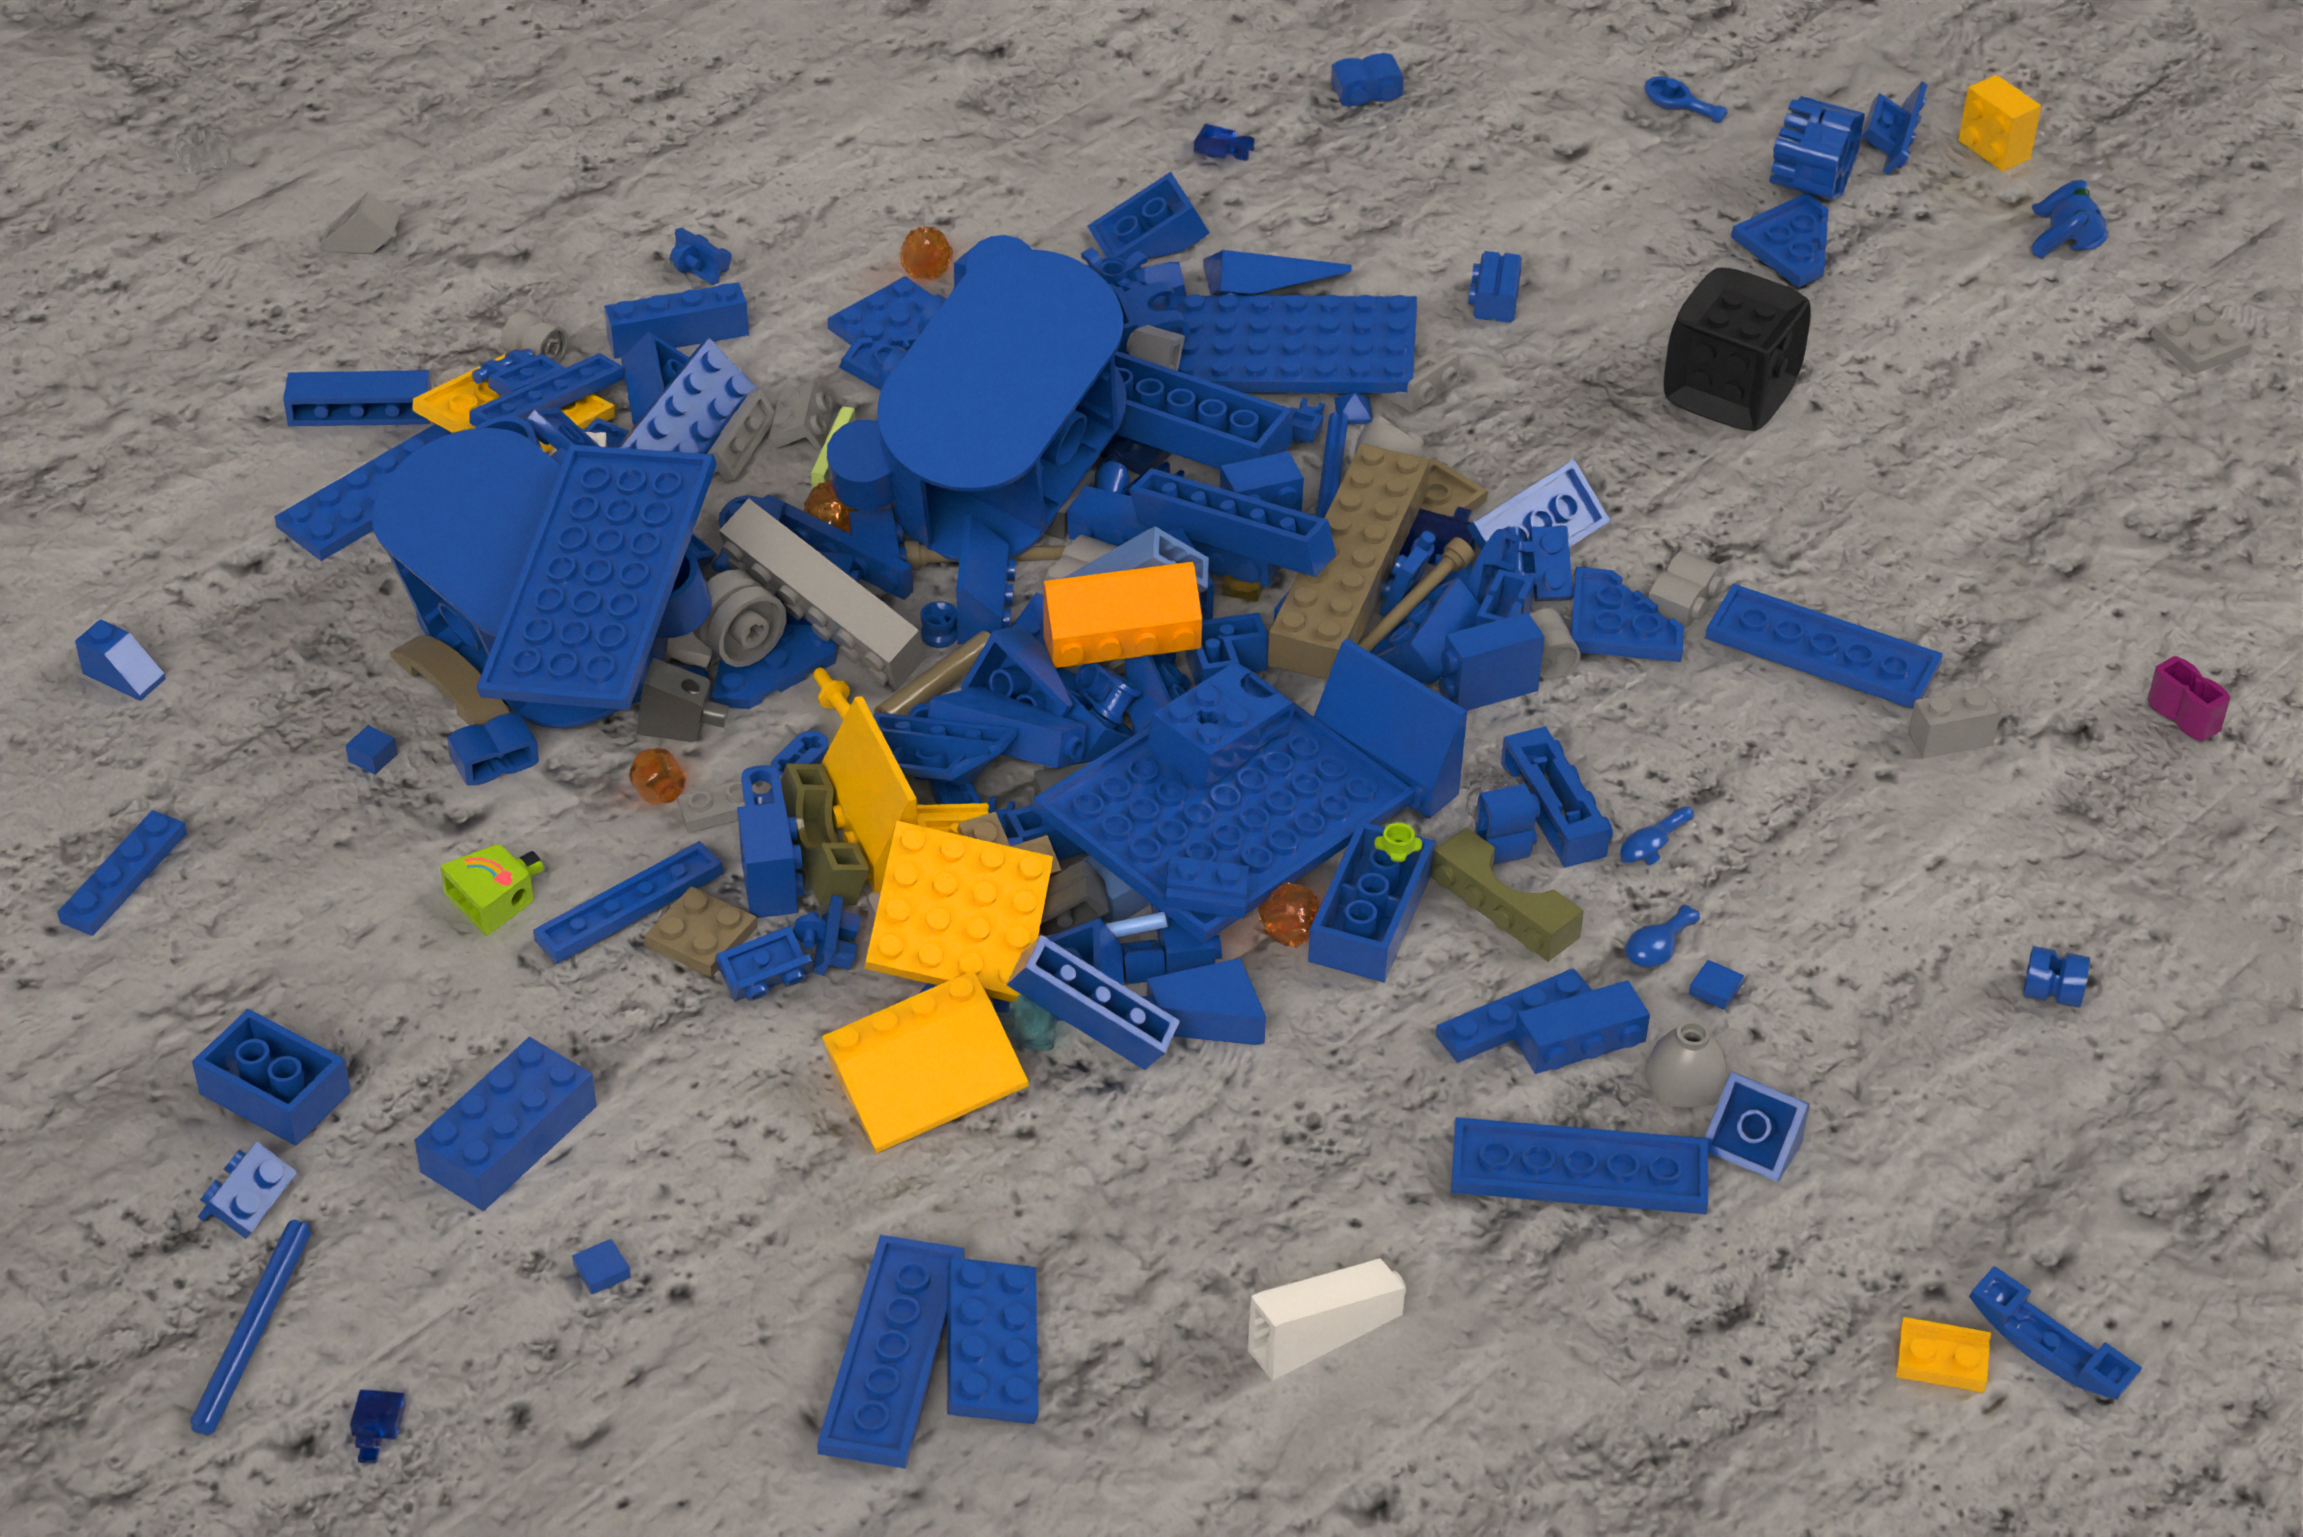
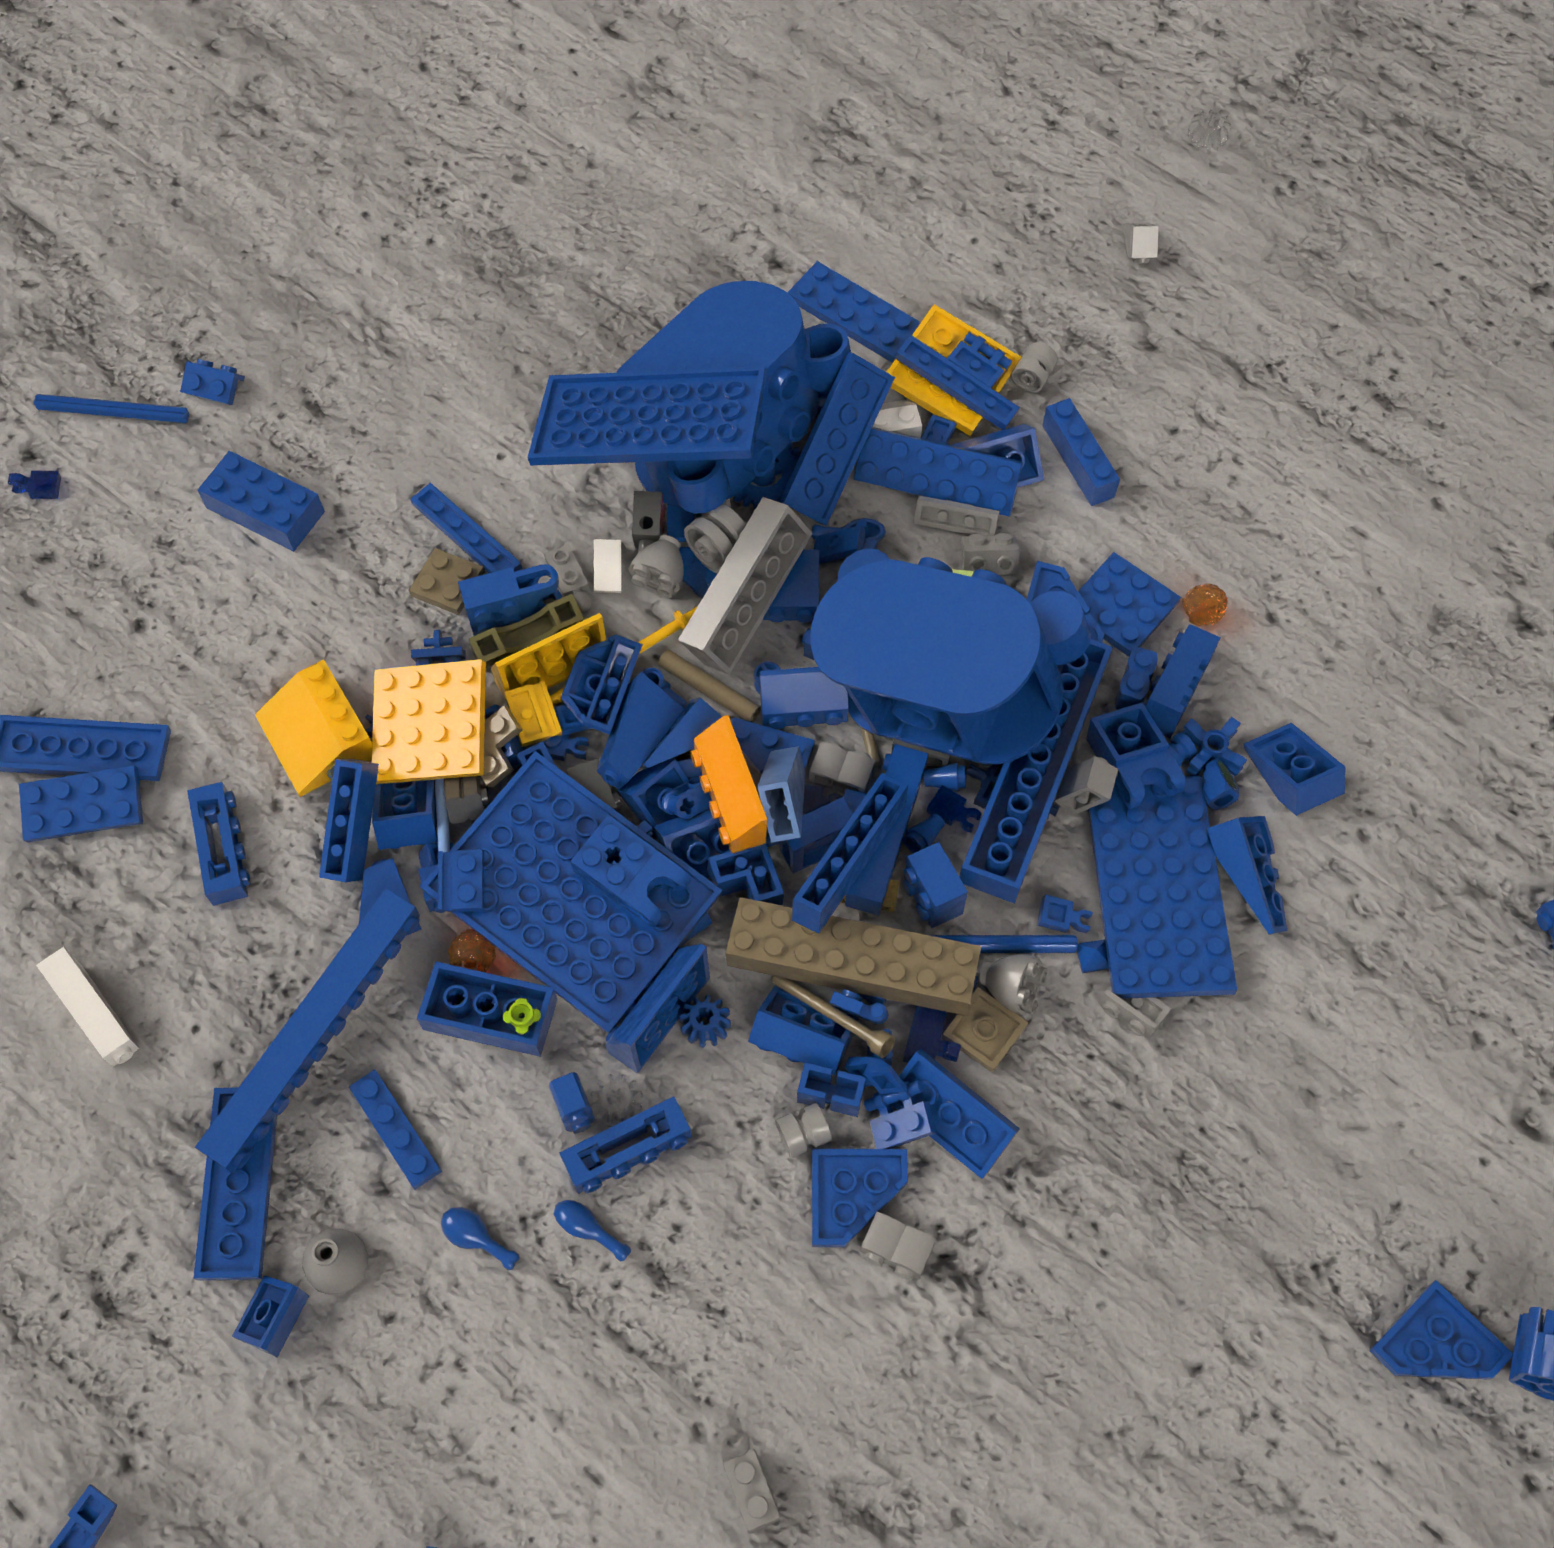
camera: 85 degrees right, 20 degrees up
(117, 660) = (659, 211): blue slope -> none
(122, 873) = (477, 261): blue plate -> none
(271, 1076) = (291, 370): blue brick -> none
(354, 397) = (949, 275): blue brick -> none
(371, 749) = (597, 361): blue piece -> none
(490, 885) = (470, 453): lime torso -> none
(601, 1266) = (154, 576): blue tile -> none
(657, 776) = (585, 527): clear orange head -> none
(698, 256) = (1163, 449): blue hips -> none
(712, 755) = (607, 566): none -> white slope
(753, 692) = (659, 566): none -> light grey piece
(763, 964) = (407, 620): blue bracket -> none
(794, 752) = (617, 612): blue beam -> none
(1084, 1180) = (204, 803): none -> blue brick
(1220, 141) = (1438, 811): clear blue plate -> none
(1393, 1057) = (308, 1031): none -> blue brick
(1492, 662) = (760, 1080): blue brick -> none
(1495, 286) = (1286, 1062): blue brick -> none
(1540, 921) = (483, 1140): olive arch -> none
(1581, 1027) = (372, 1177): blue brick -> none
(1716, 984) = (433, 1284): blue tile -> none
(1736, 348) = (1212, 1277): black piece -> none
(1824, 646) = (843, 1375): blue plate -> none
(1943, 1354) = (58, 1467): yellow plate -> none

